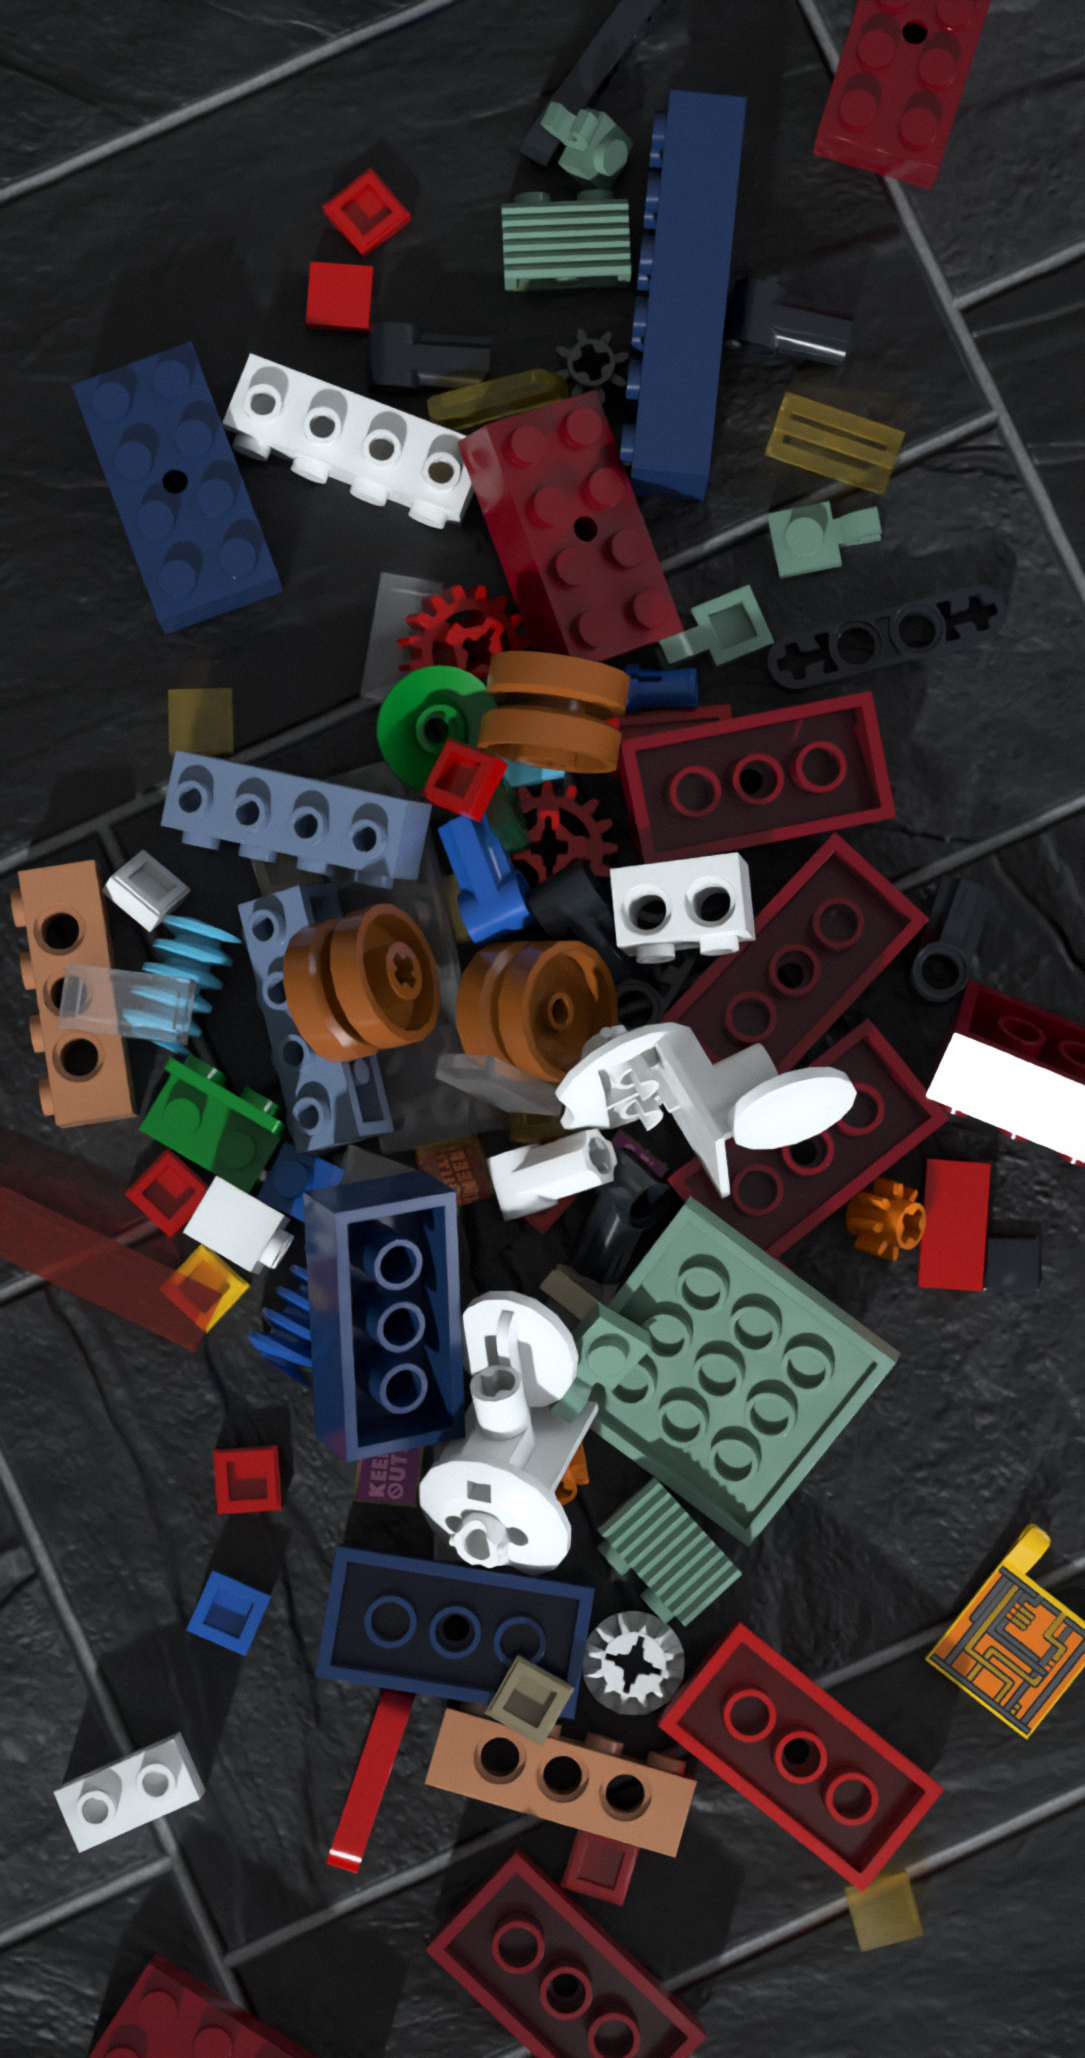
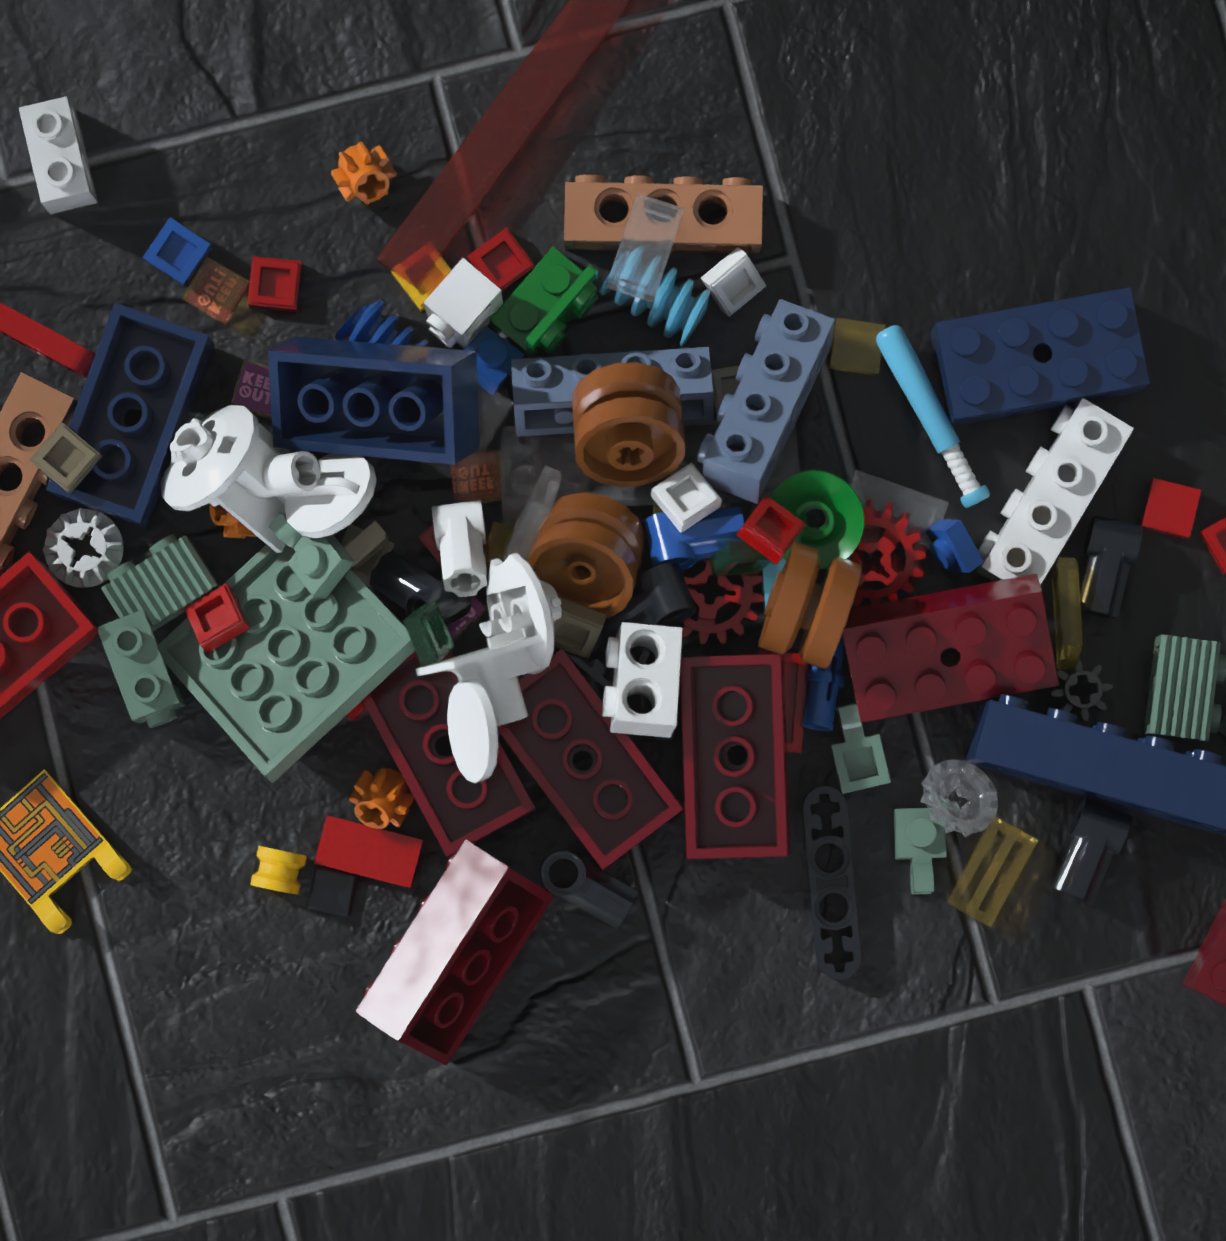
camera: 100 degrees right, 0 degrees up
(86, 1388) = (363, 173): none -> orange gear
(254, 626) = (923, 399): none -> medium azure piece
(270, 1554) = (216, 291): none -> clear yellow tile
(438, 554) = (953, 546): none -> blue plate
(440, 895) = (686, 497): none -> white tile
(628, 1002) = (577, 628): none -> dark tan tile
(676, 1187) = (429, 634): none -> clear green tile
(696, 1469) = (217, 618): none -> red tile
(730, 490) = (970, 784): none -> clear gear
(779, 1555) = (140, 670): none -> sand green bracket
(1000, 1334) = (278, 870): none -> yellow wheel

